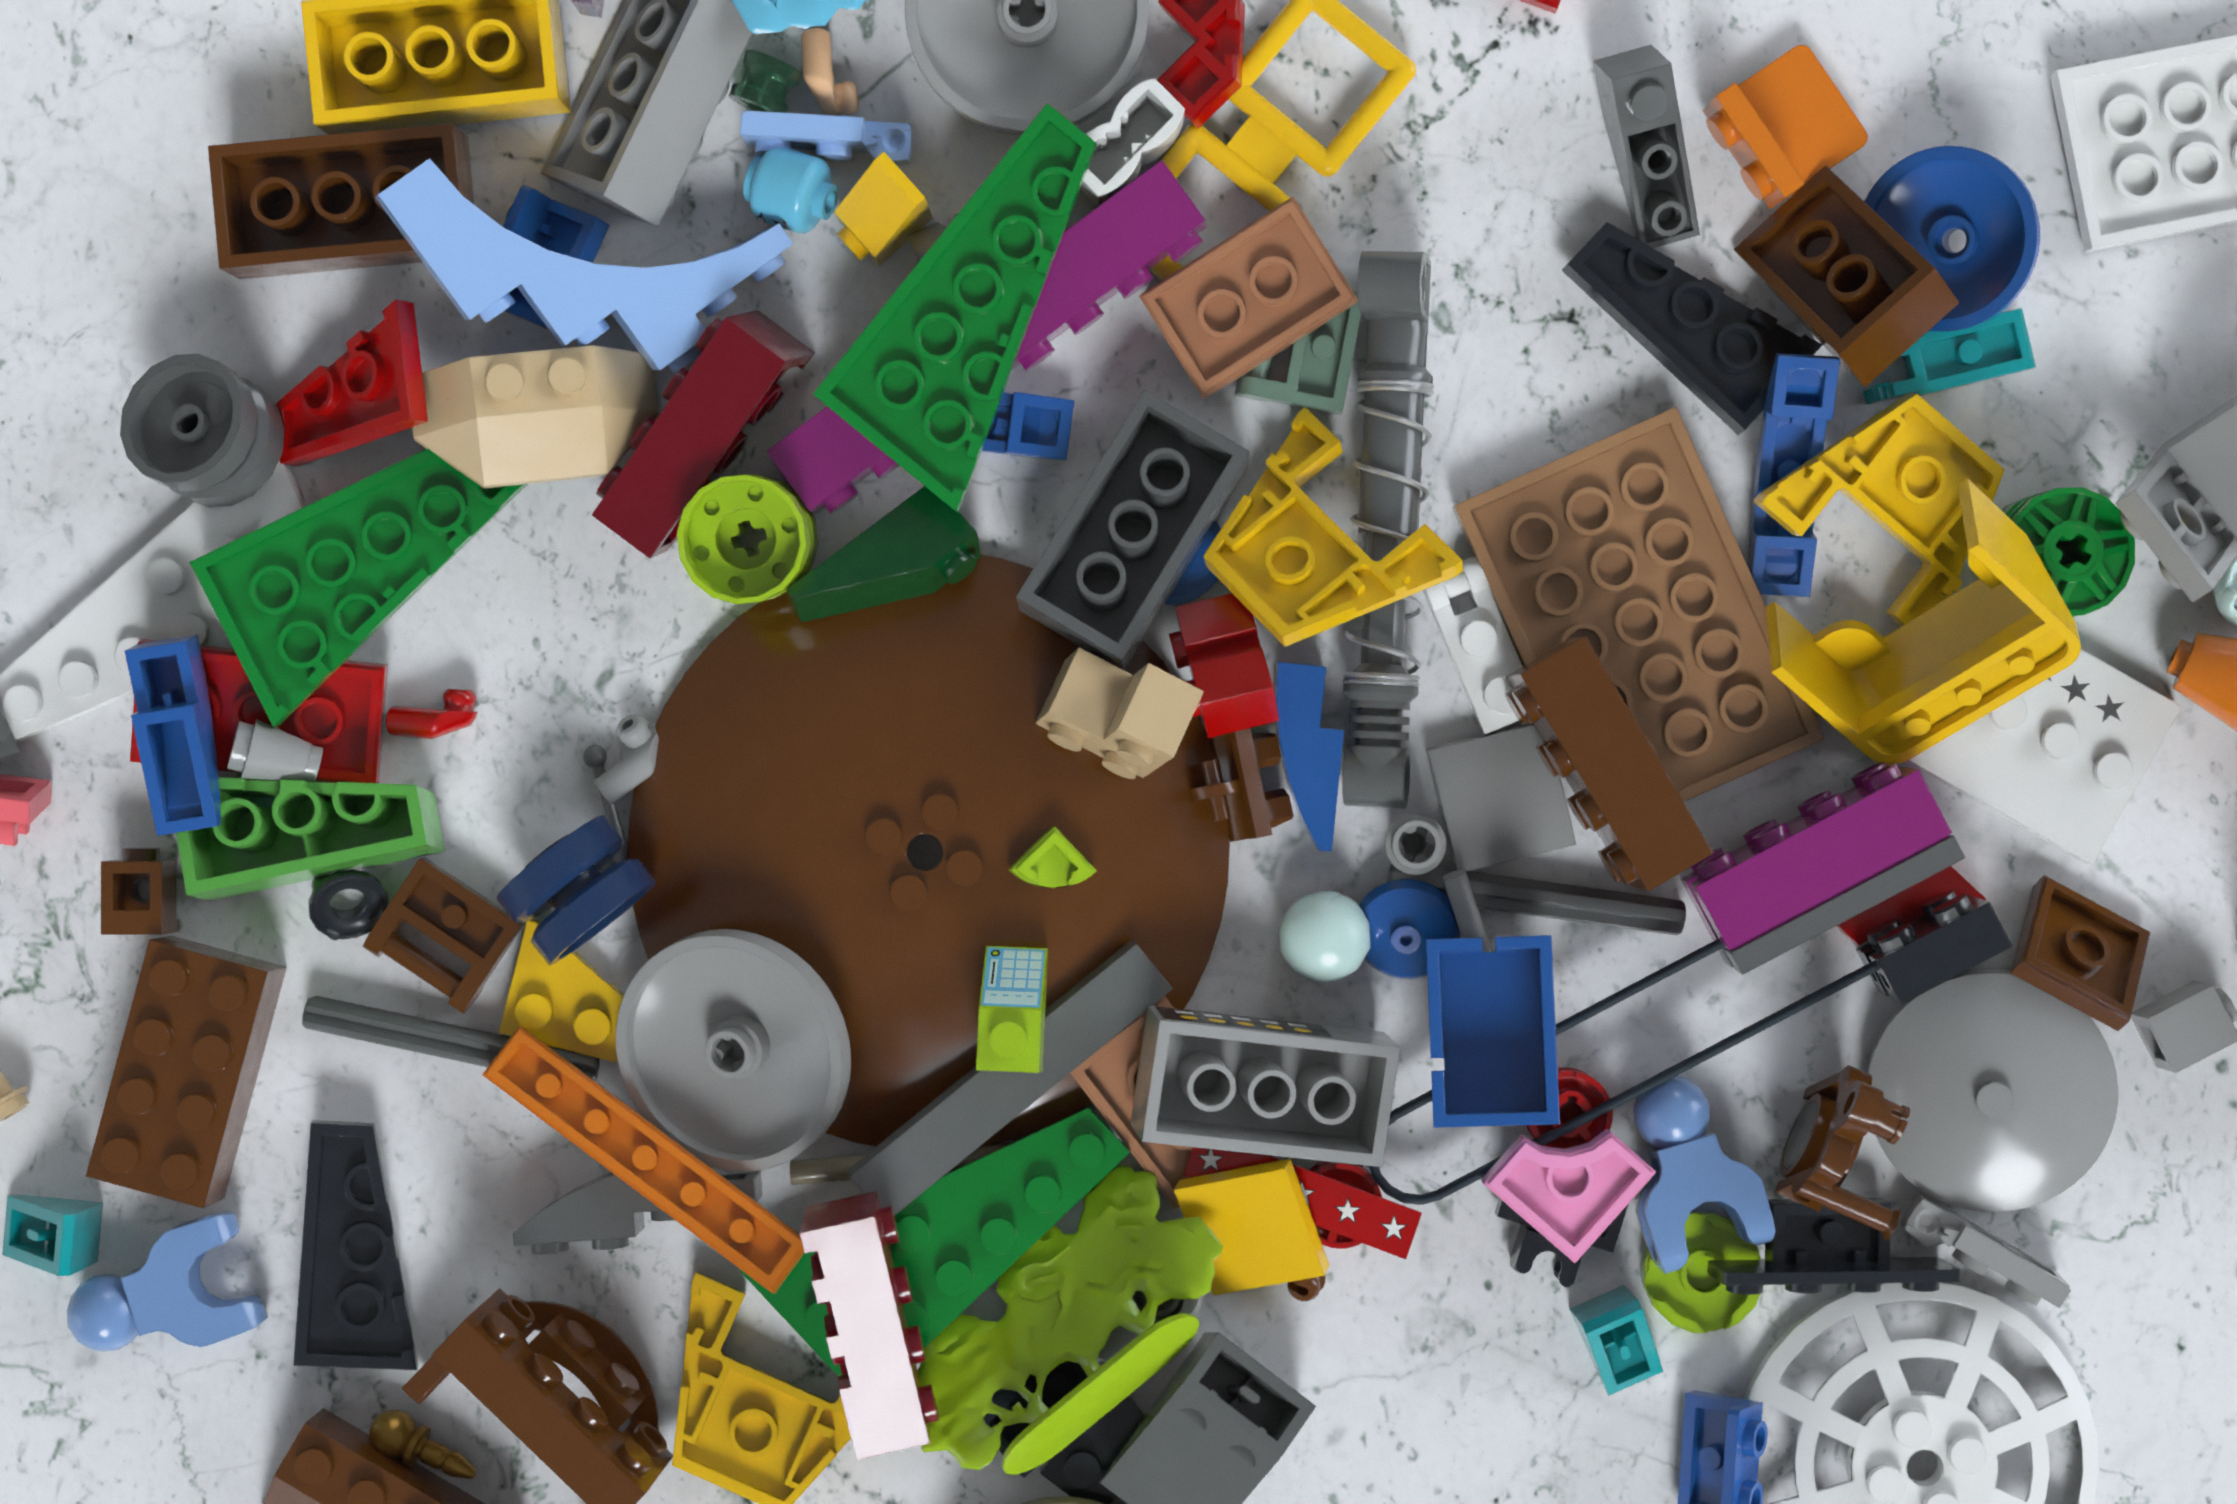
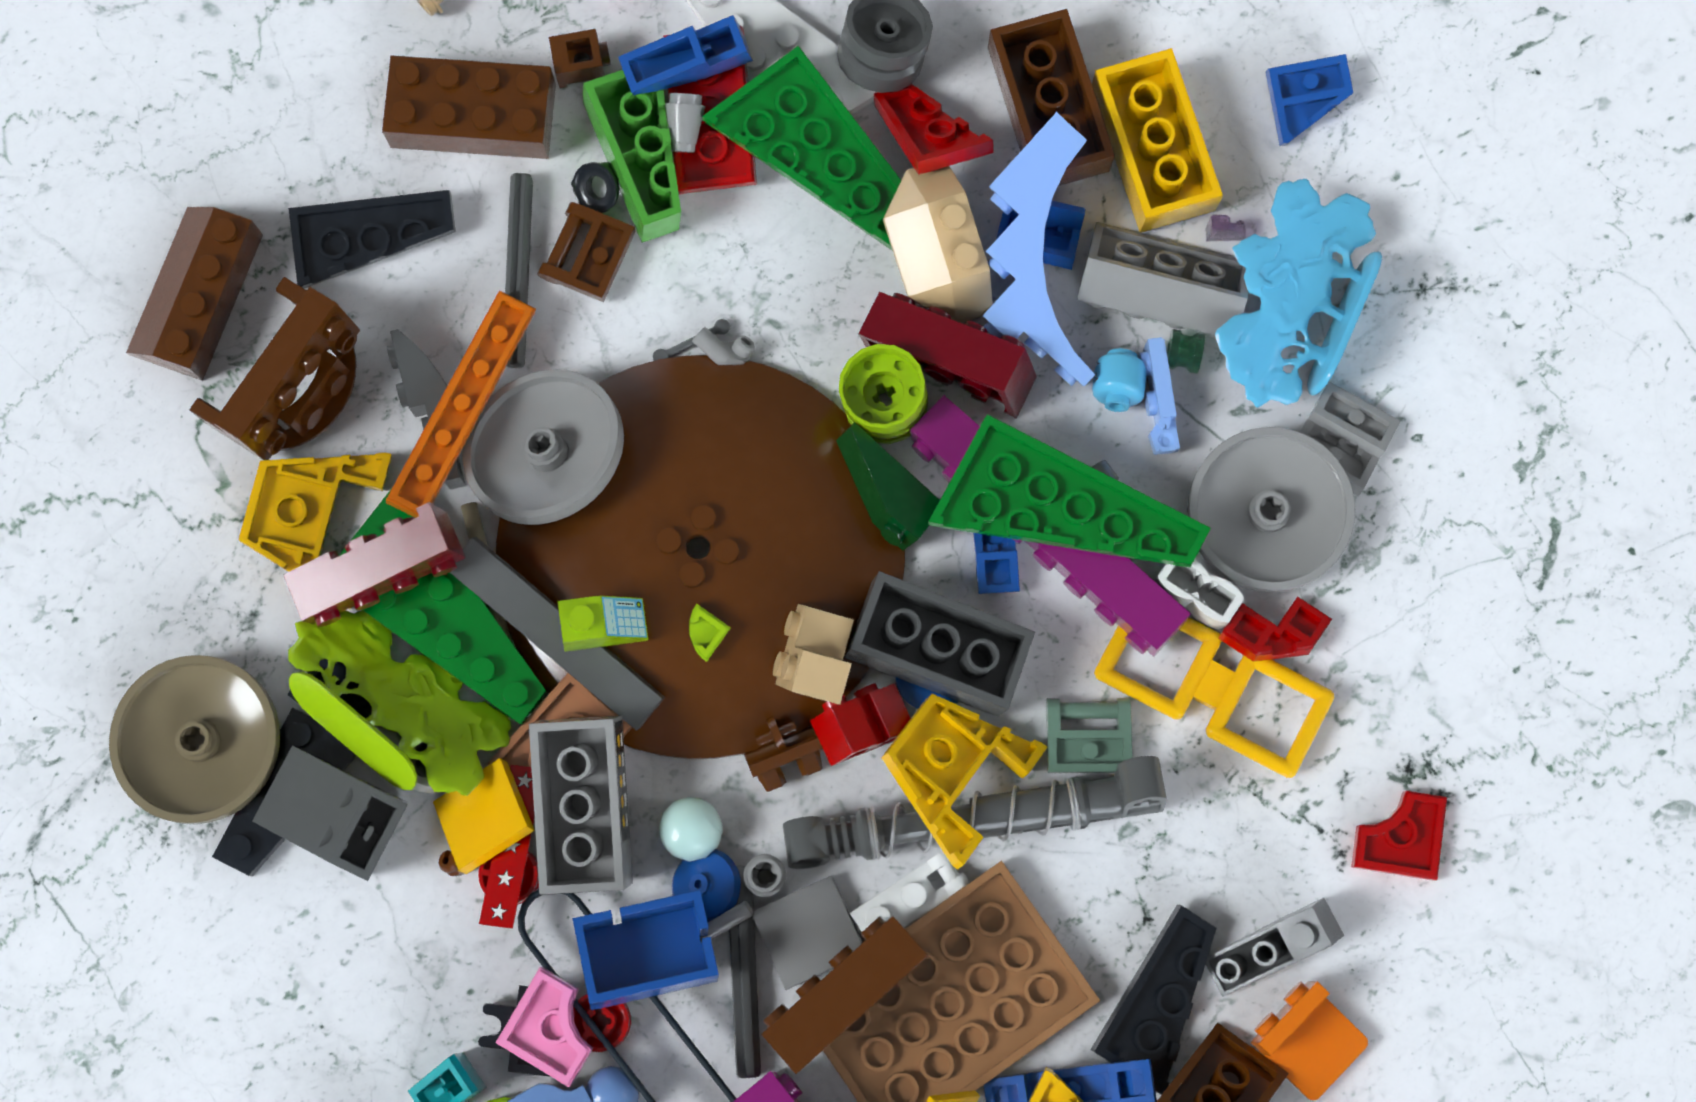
camera: 75 degrees right, 10 degrees down
(52, 1233) = (350, 46): teal slope -> none
(164, 1294) = (322, 120): medium blue piece -> none
(397, 1436) = (251, 284): pearl gold bar -> none
(433, 723) = (724, 219): red arm -> none
(562, 1002) = (559, 333): yellow wing -> none
(570, 882) = (631, 326): dark blue wheel -> none
(818, 74) = (1197, 385): light nougat arm -> none
(881, 211) = (1117, 439): yellow slope -> none
(1248, 298) = (1111, 693): nougat tile -> none
(1308, 752) = (814, 792): blue slope -> none

